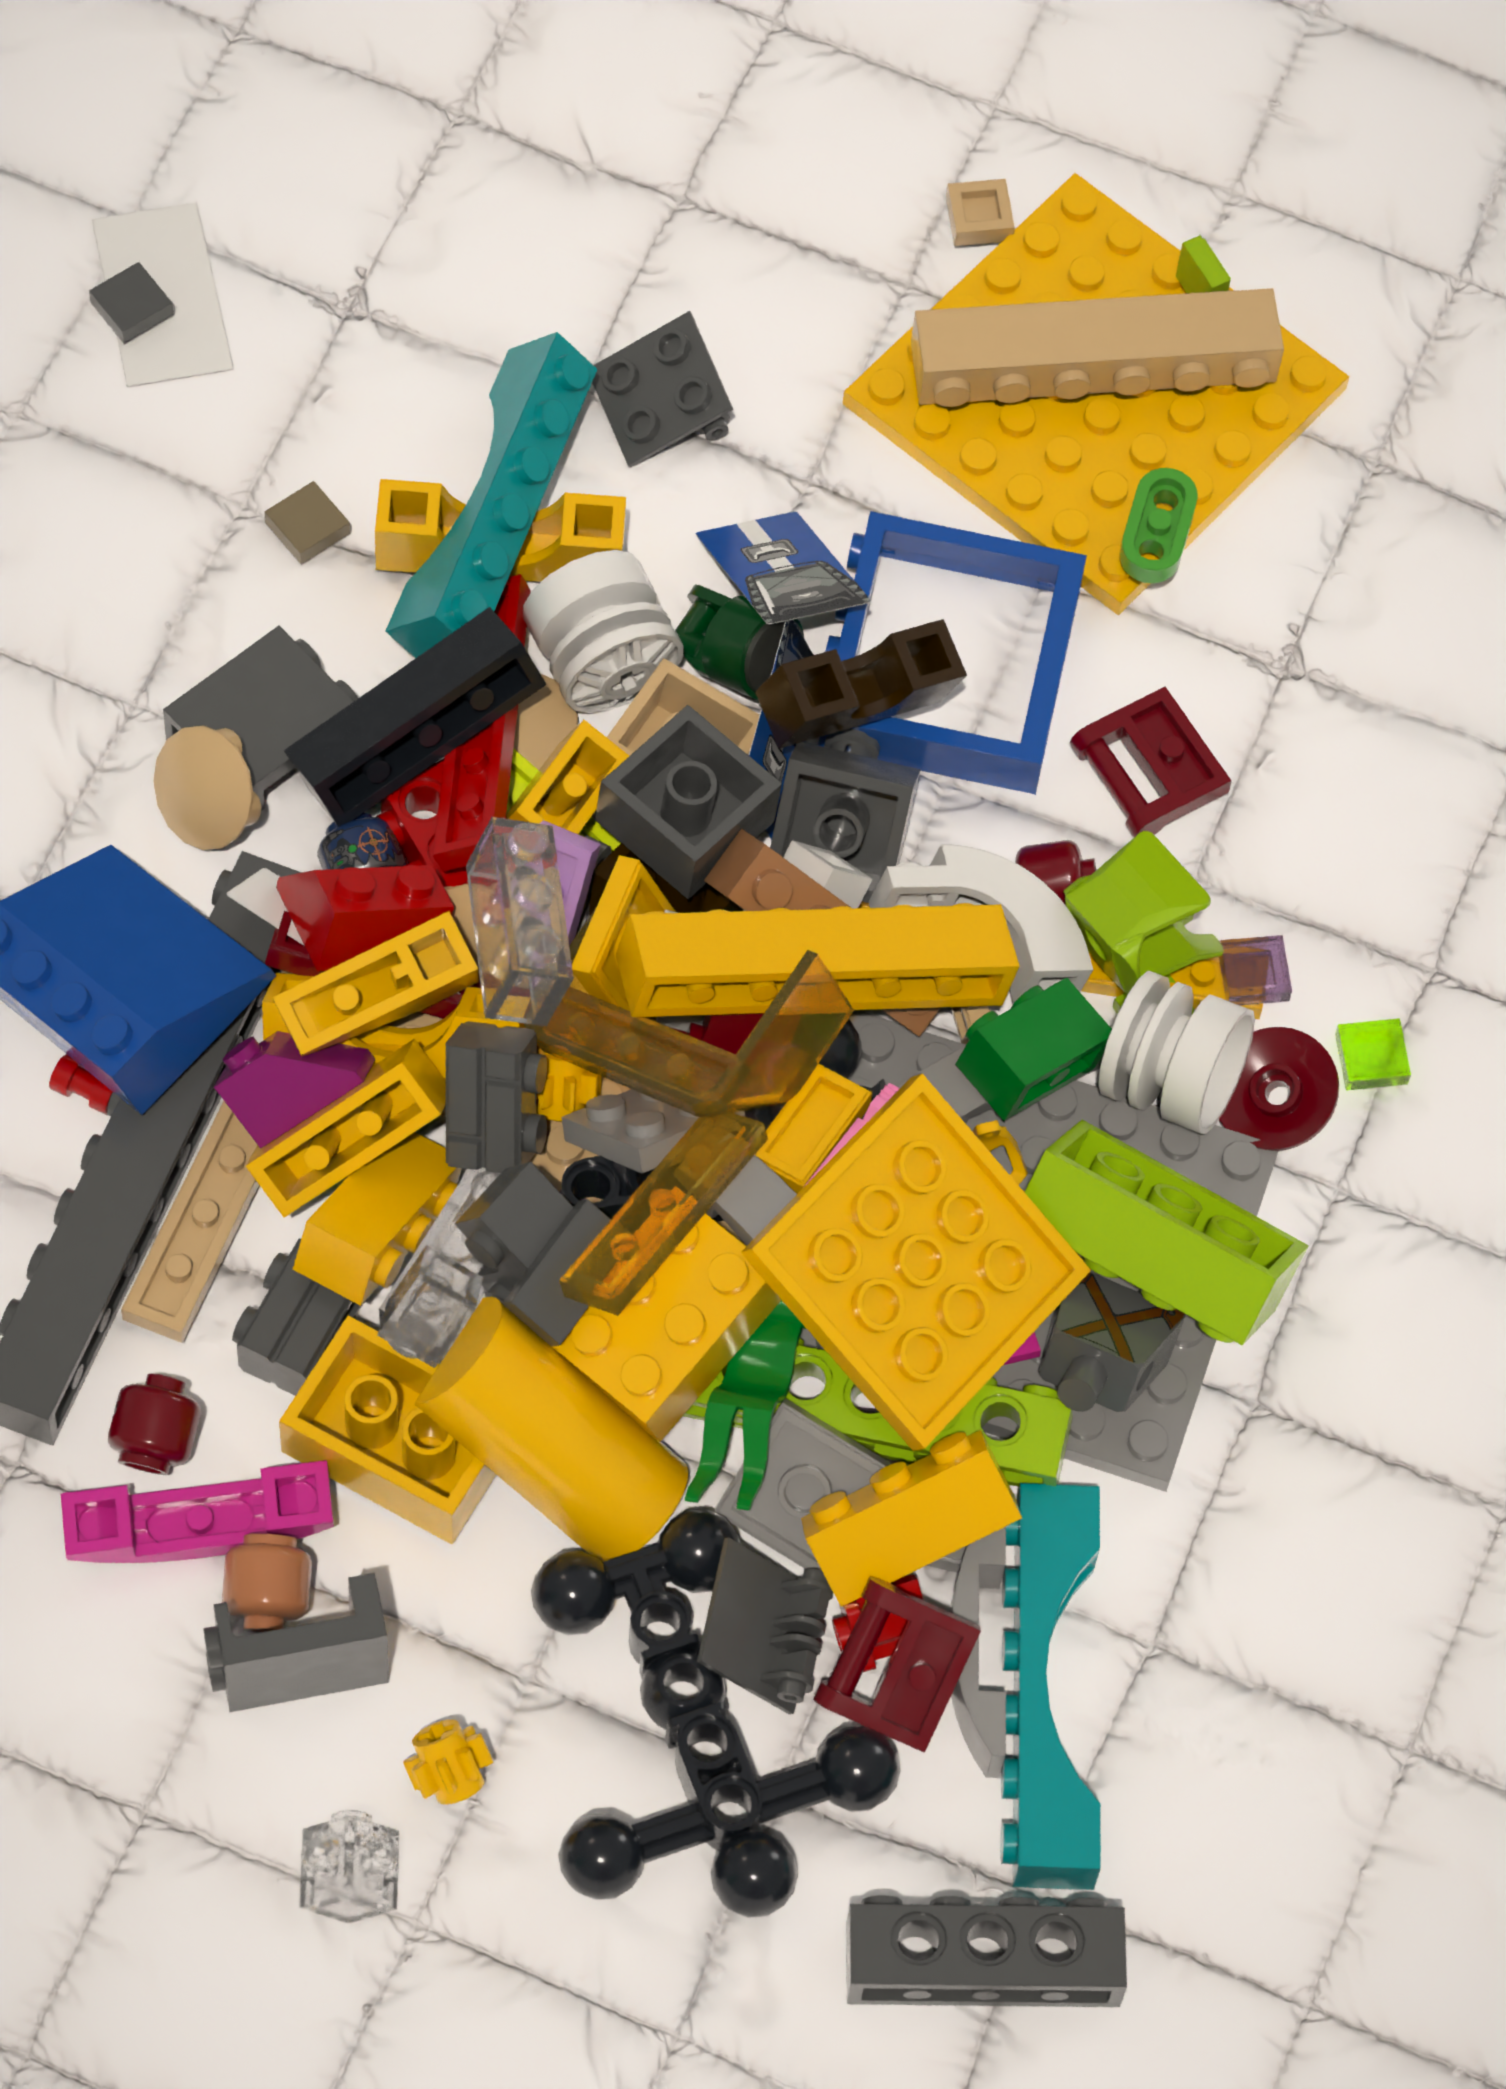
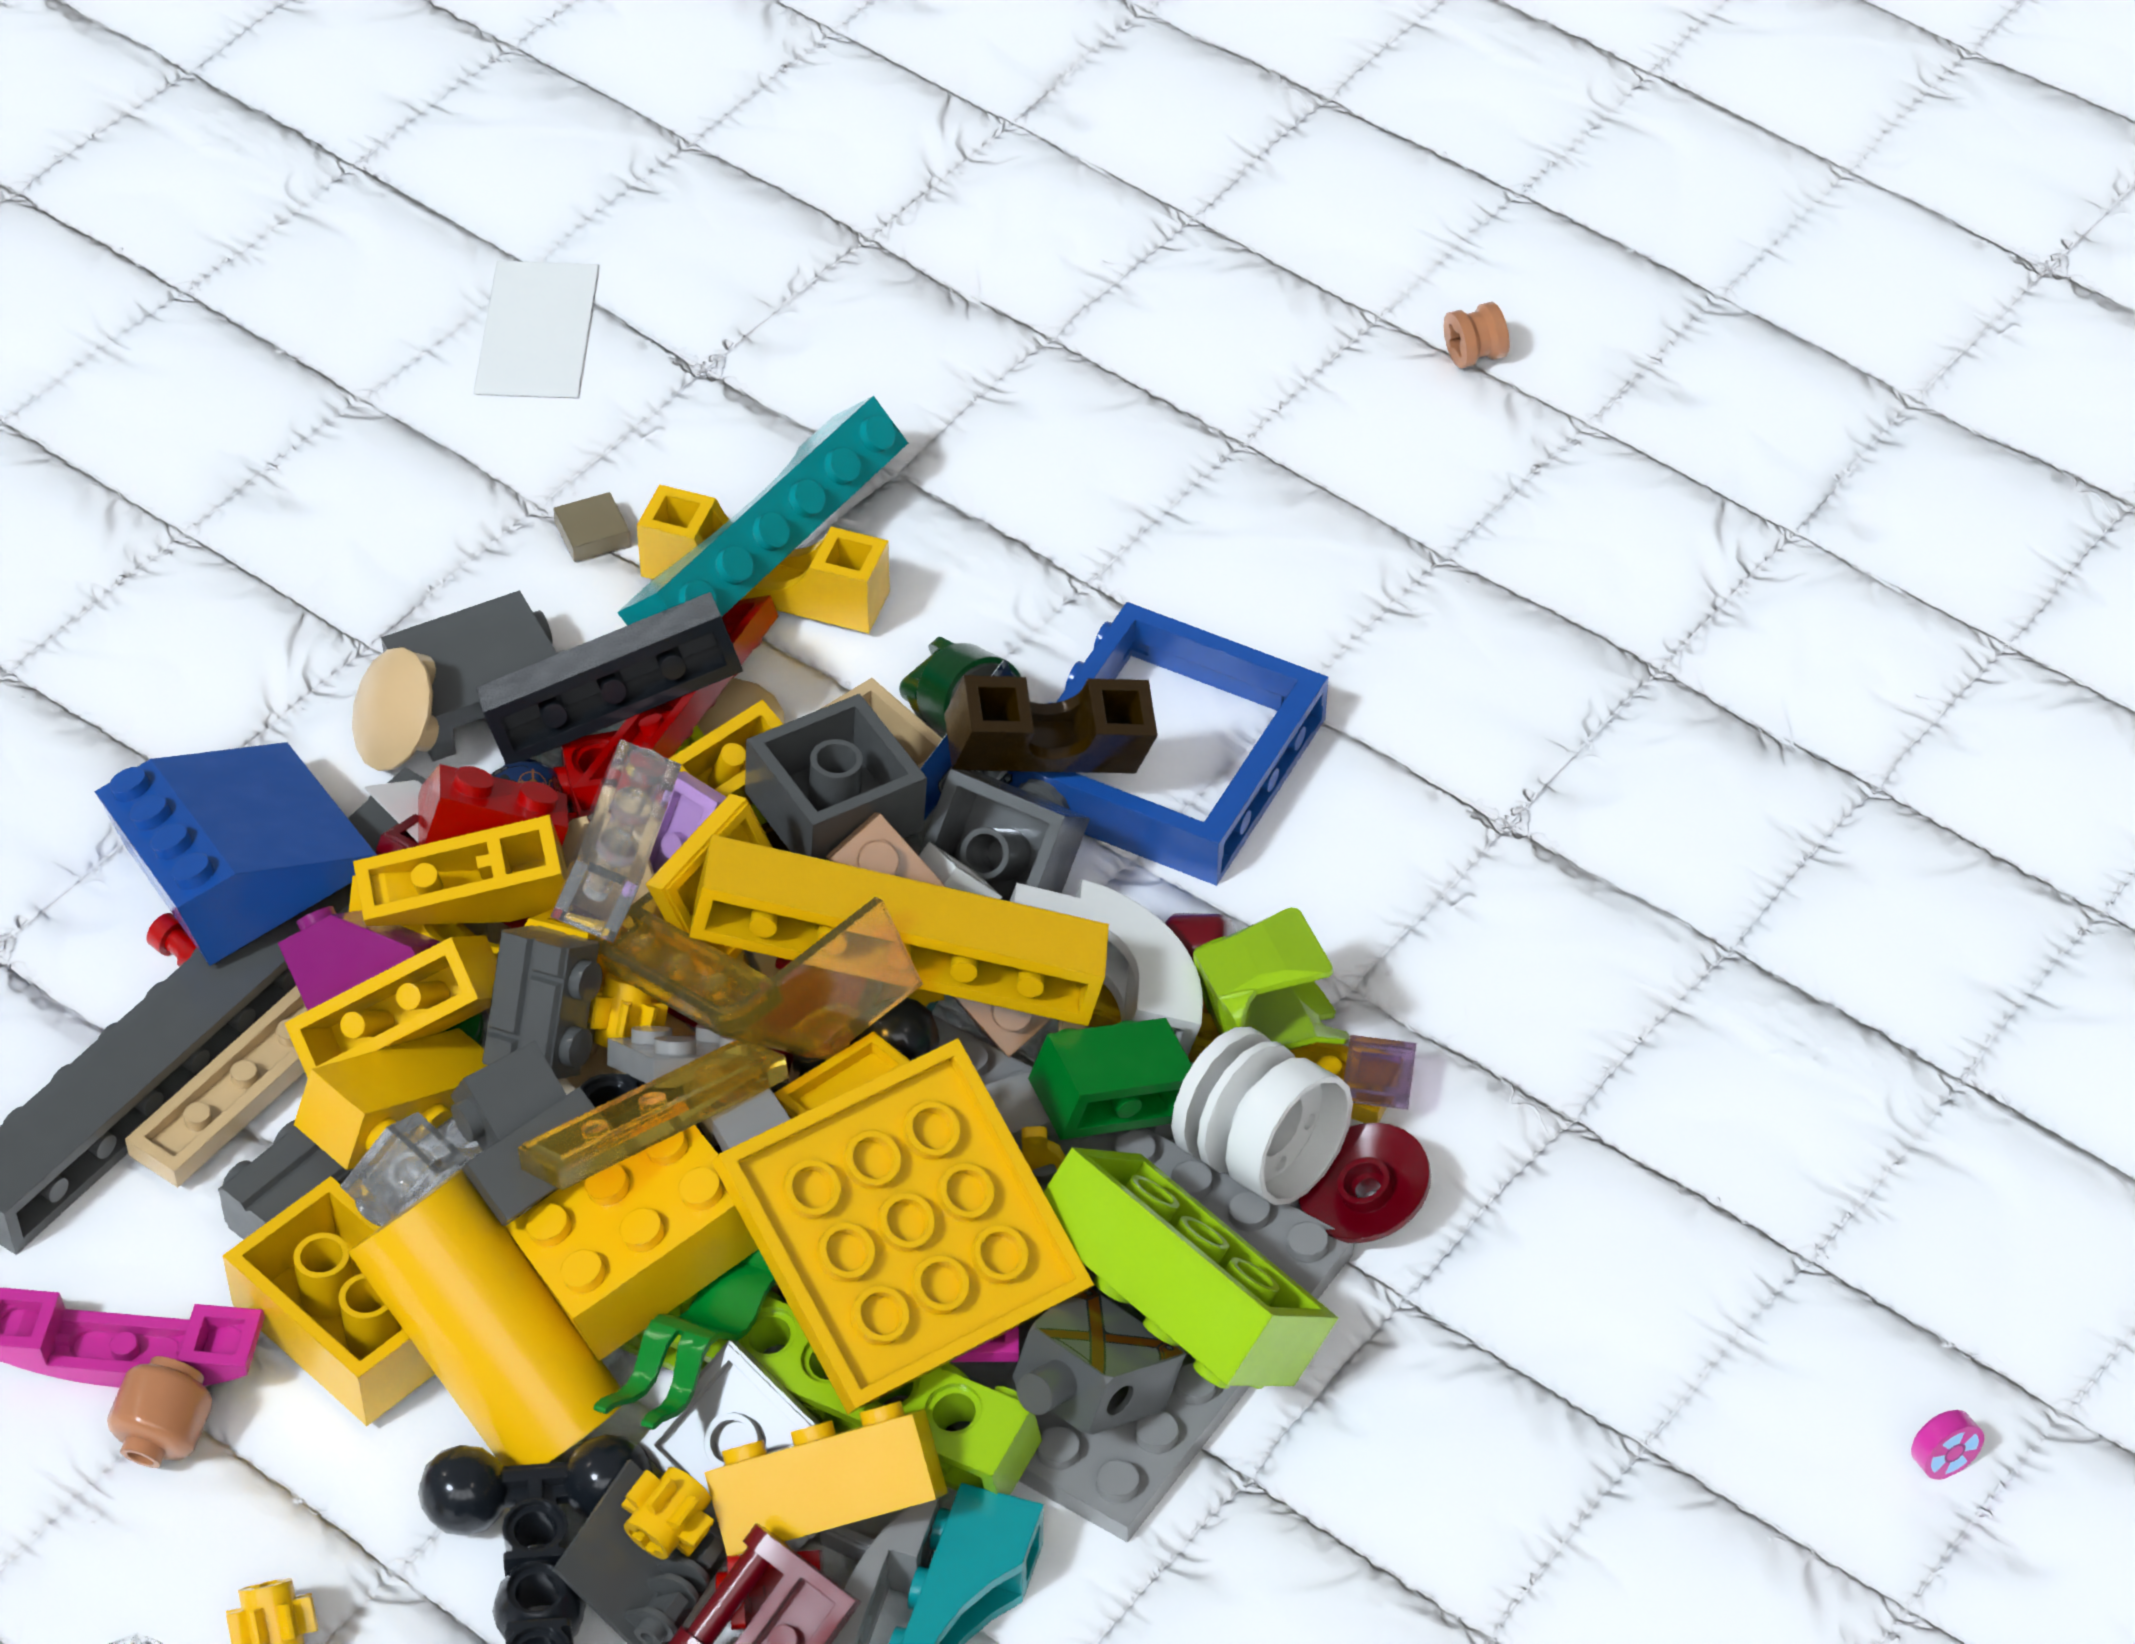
camera: 20 degrees right, 15 degrees down
(131, 302) = (501, 325): dark grey tile -> none
(154, 1425) = (112, 1248): dark red head -> none
(301, 1658) = (163, 1482): panel -> none
(601, 629) = (823, 639): white wheel -> none
(662, 390) = (970, 478): dark grey hinge -> none
(781, 1583) = (667, 1513): none -> yellow gear
(782, 567) = (1023, 633): sticker -> none
(979, 212) = (1331, 391): tan plate -> none
(1071, 467) = (1398, 558): yellow plate -> none
(1096, 346) = (1398, 505): tan brick -> none
(1101, 117) = (1476, 334): none -> nougat wheel
(1157, 529) = (1399, 674): bright green plate -> none
(1166, 751) = (1357, 865): dark red plate -> none
(1200, 268) = (1525, 468): lime tile -> none
(1372, 1054) = (1483, 1179): clear neon green tile -> none

